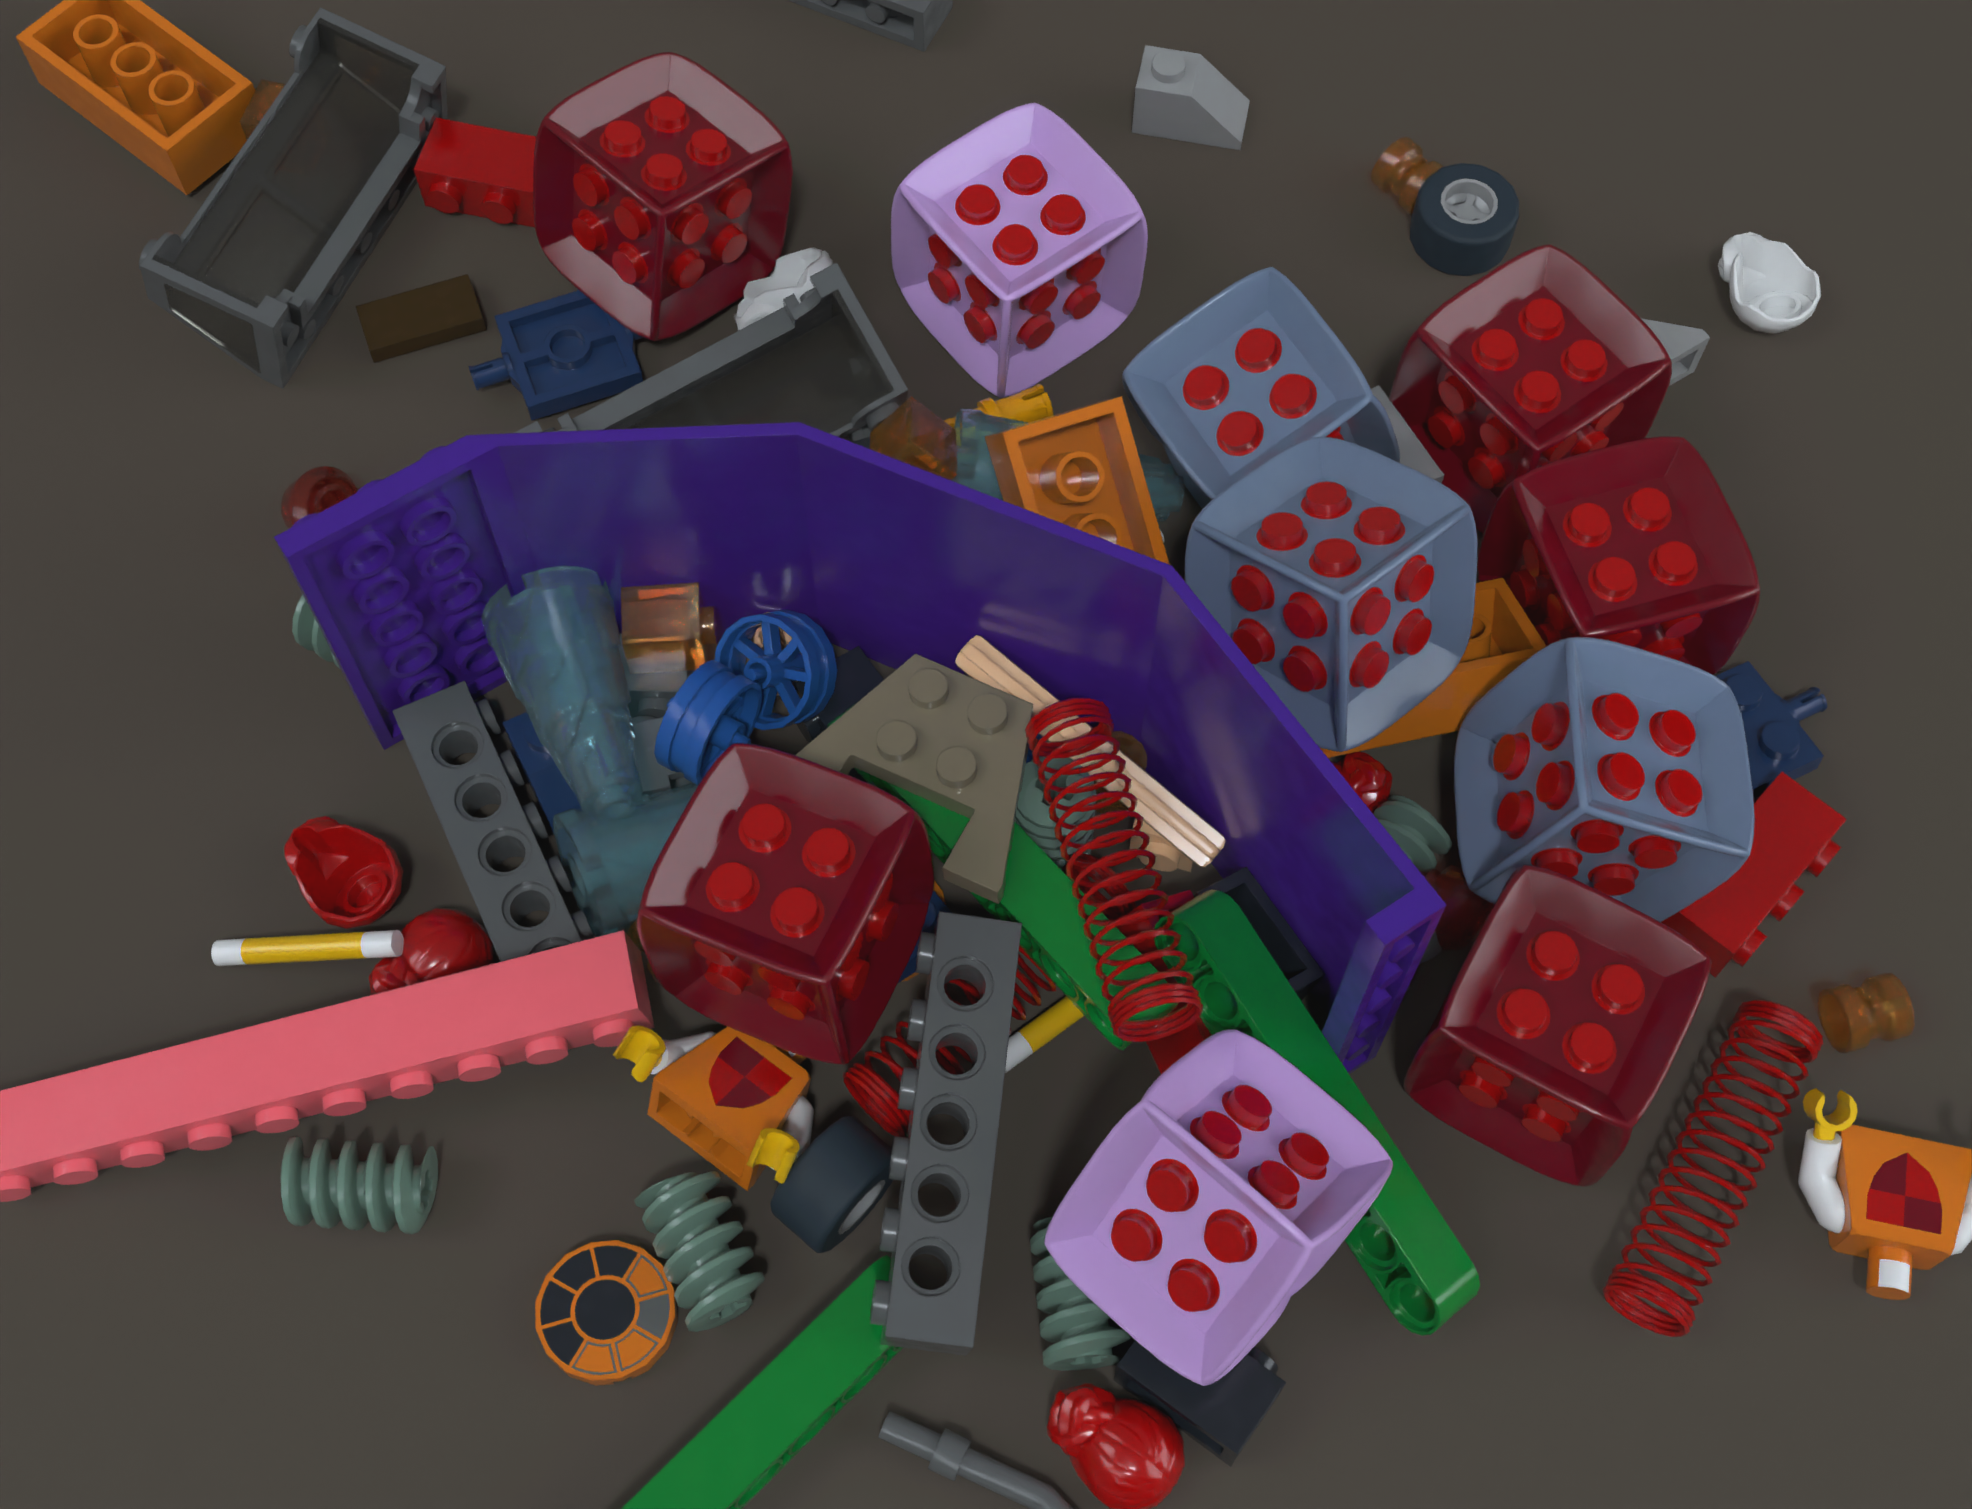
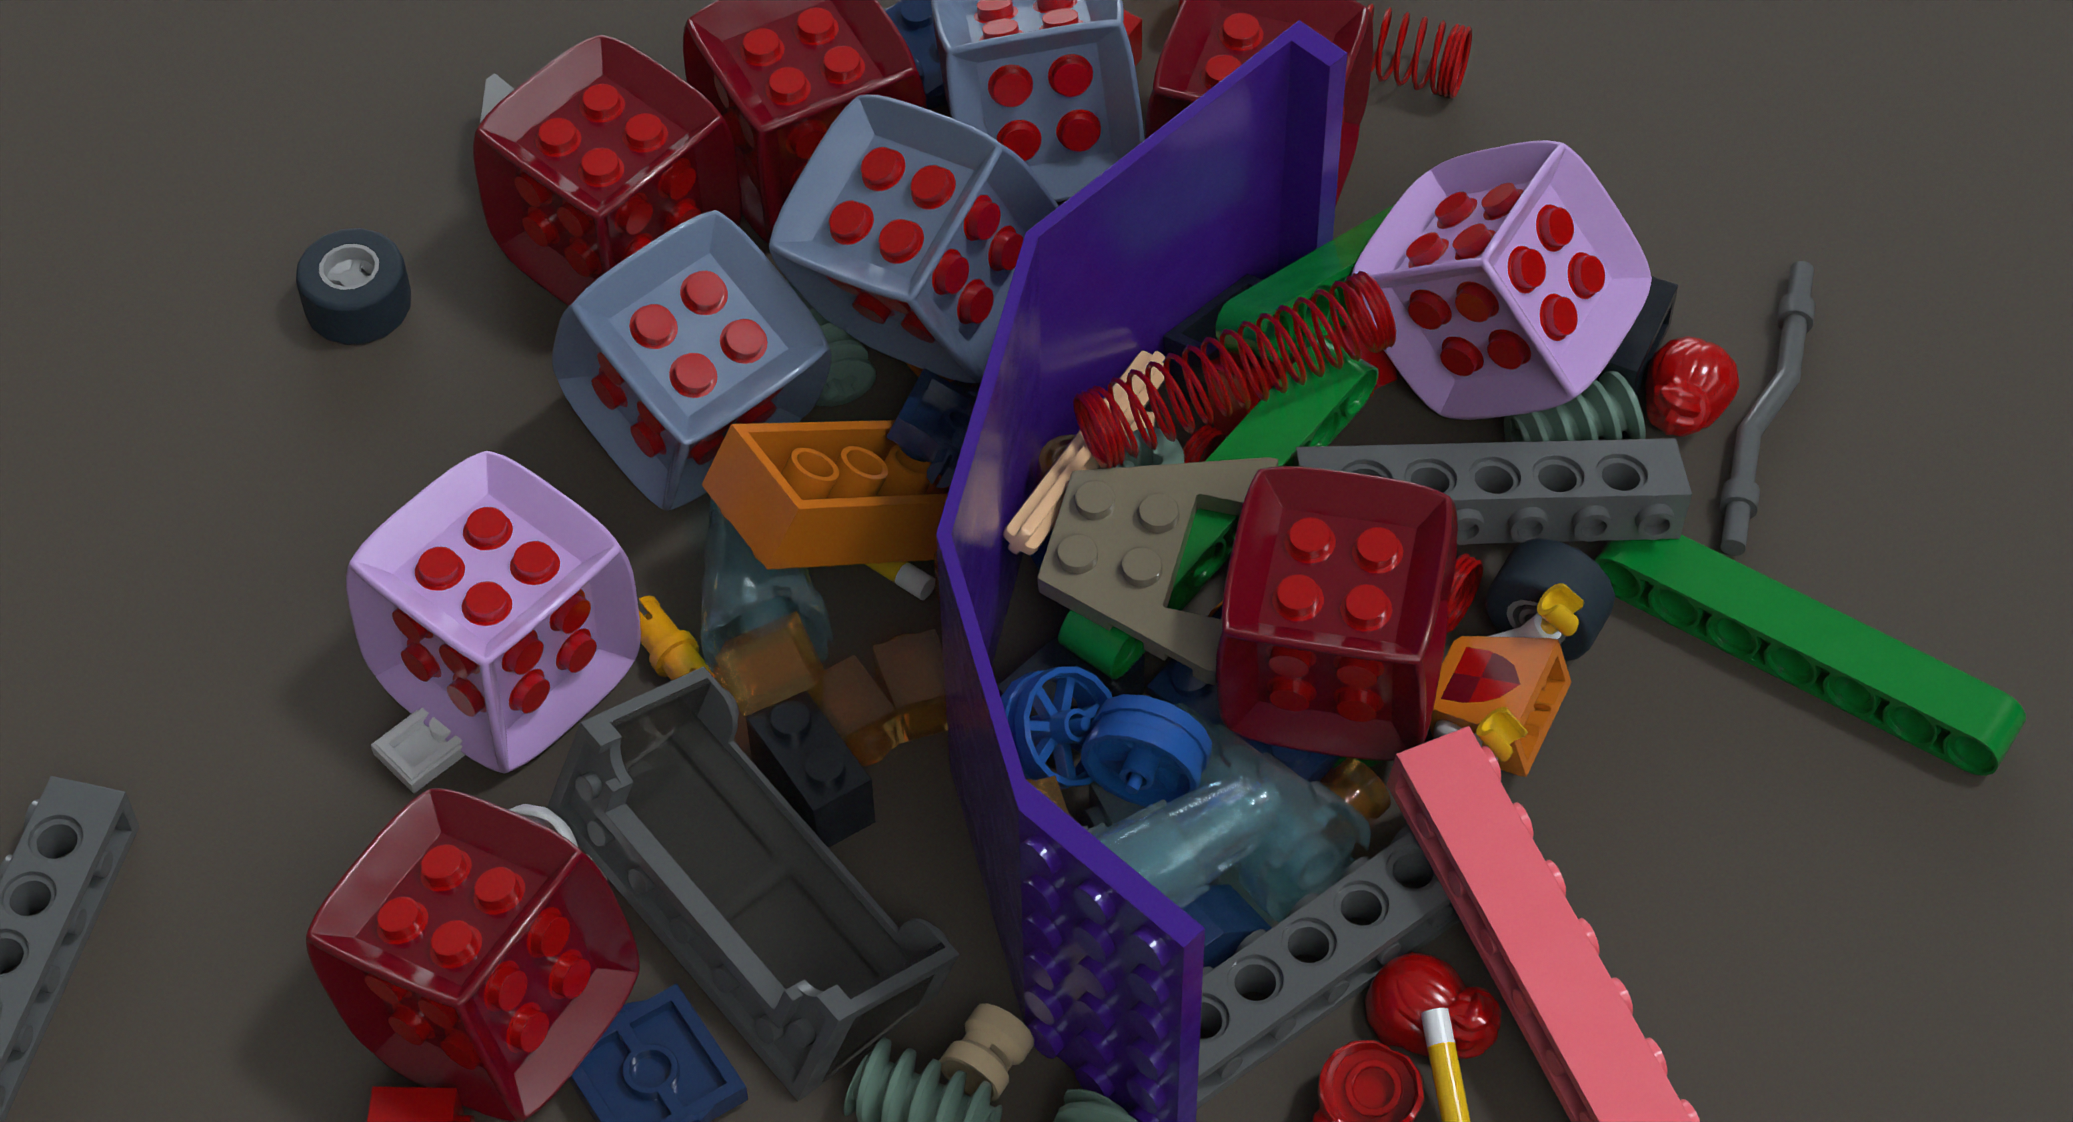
camera: 100 degrees left, 10 degrees down
(357, 1189) = (1678, 991): sand green piece -> none
(606, 1312) = (1713, 777): tile -> none
(699, 1248) = (1636, 700): sand green piece -> none
(1187, 100) = (213, 549): light grey slope -> none
(1403, 171) = (301, 335): clear orange wheel -> none
(1768, 283) = (408, 46): white hair -> none

